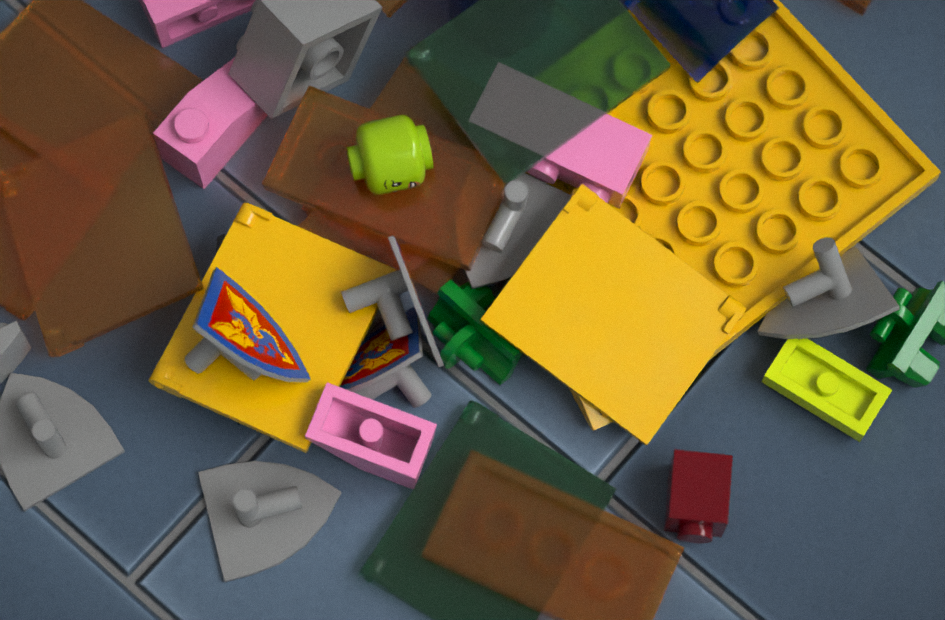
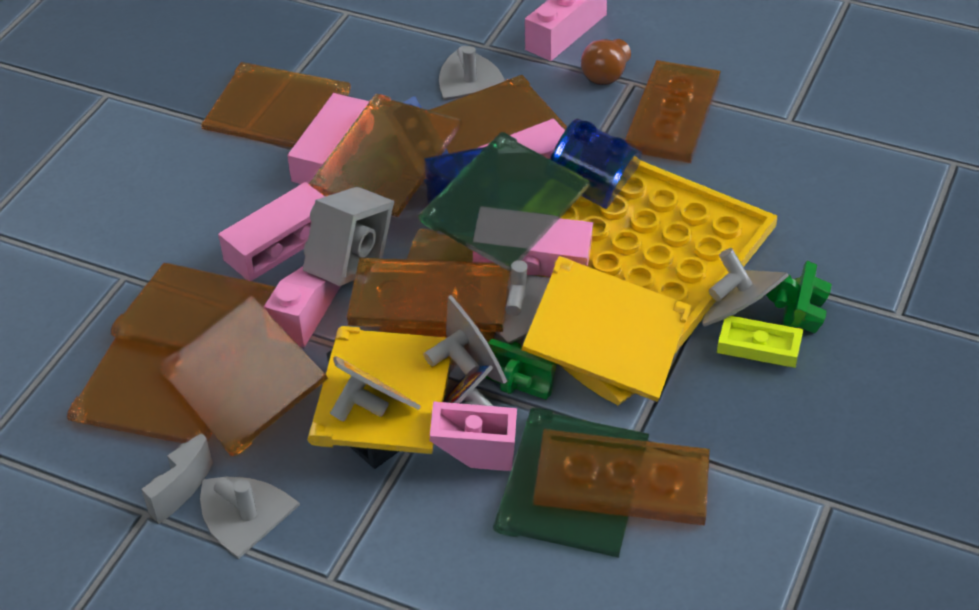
camera: 15 degrees left, 25 degrees down
(263, 513) = (411, 514): light grey shield -> none
(390, 154) = (429, 271): lime head -> none
(698, 495) = (705, 416): dark red brick -> none

